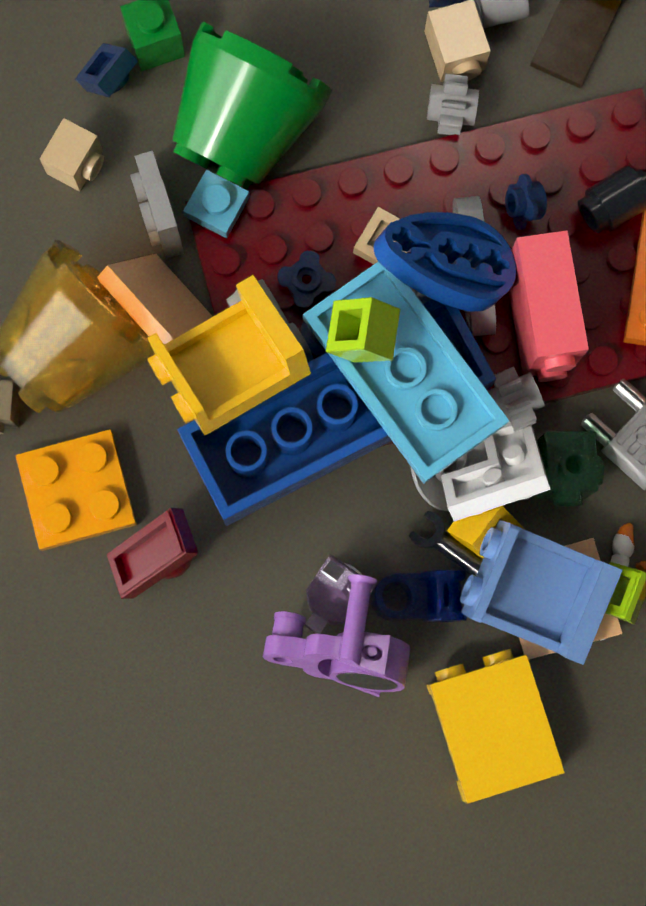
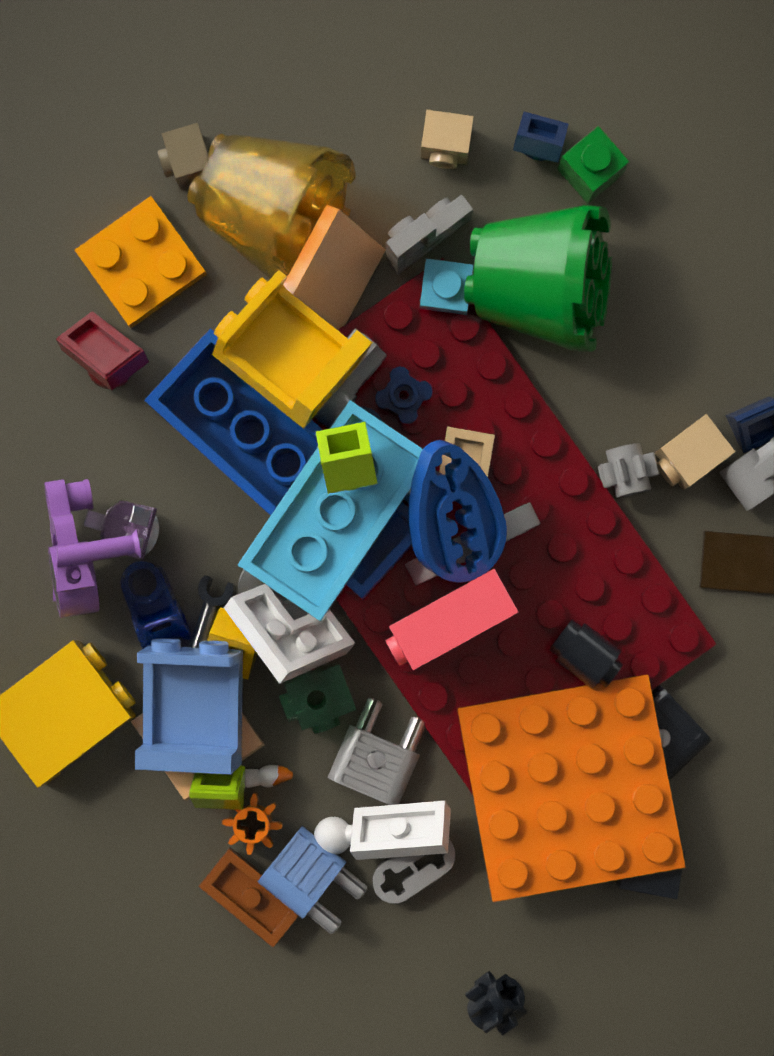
camera: 80 degrees right, 5 degrees up
(517, 397) = (358, 624): light grey gear -> none
(525, 201) = (553, 570): dark blue plate -> none

